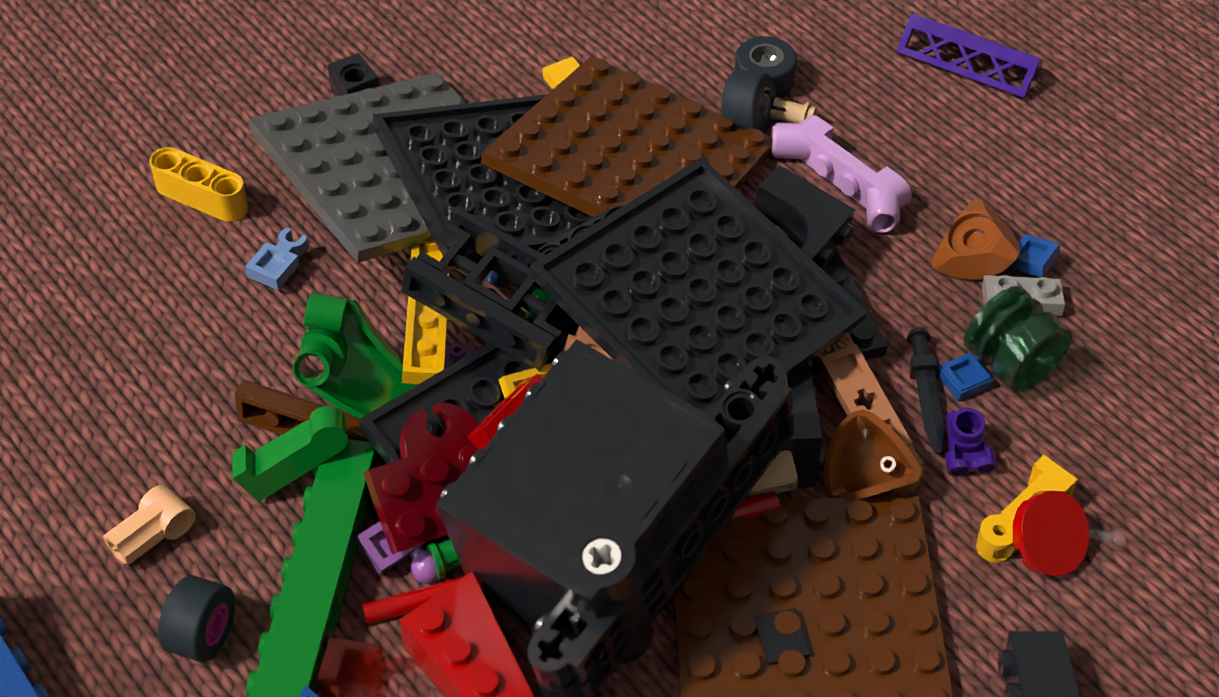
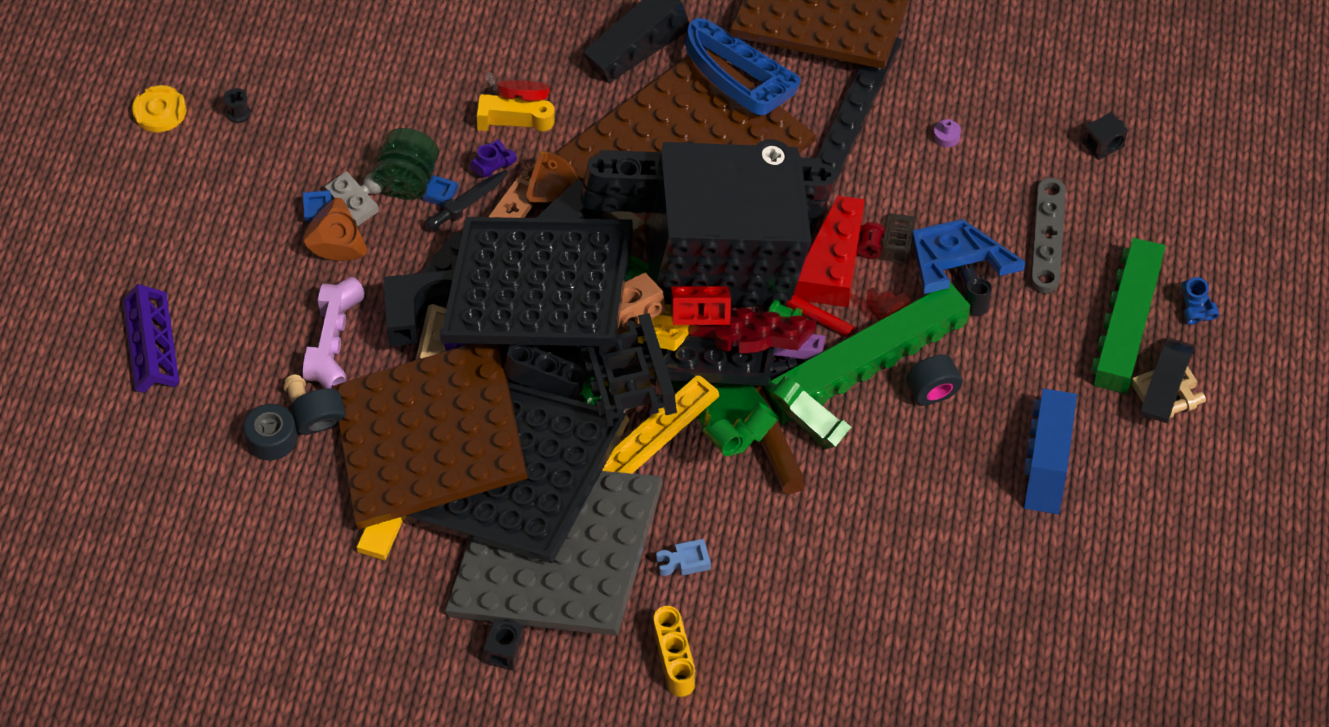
camera: 130 degrees left, 5 degrees up
(159, 516) = (899, 455): light nougat piece -> none

